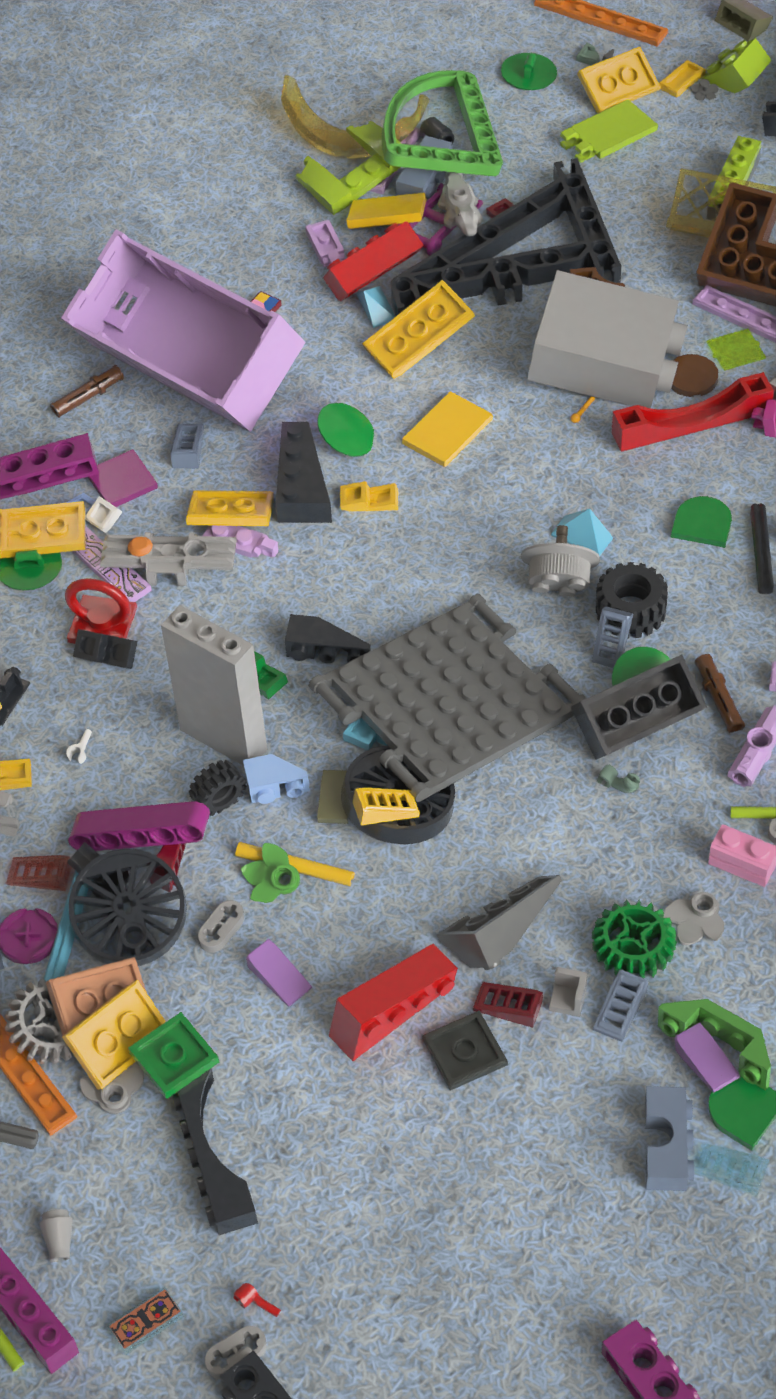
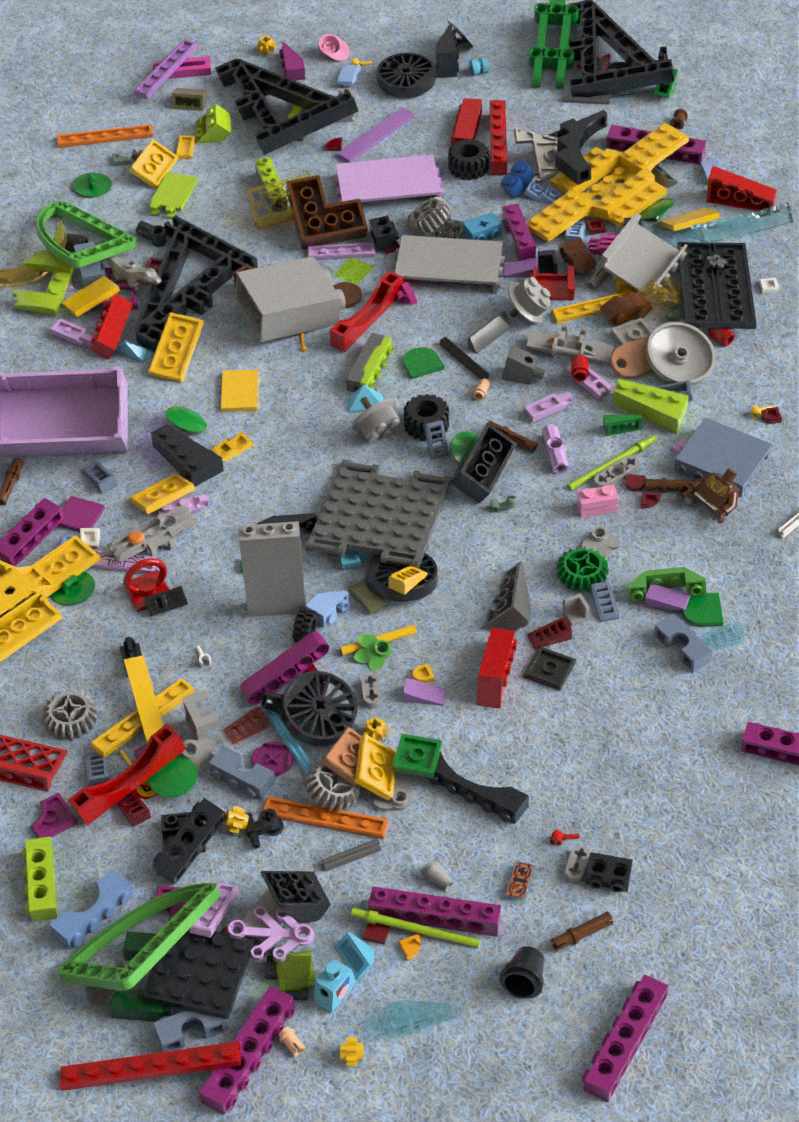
camera: 40 degrees left, 5 degrees down
(171, 982) = (375, 728): none -> yellow gear
(303, 947) = (423, 673): none -> yellow tile
(535, 168) = (153, 233): none -> black piece
(632, 484) = (370, 362): none -> piece
(703, 89) = (204, 147): dark grey plant -> none
(737, 606) = (480, 392): none -> light nougat pin

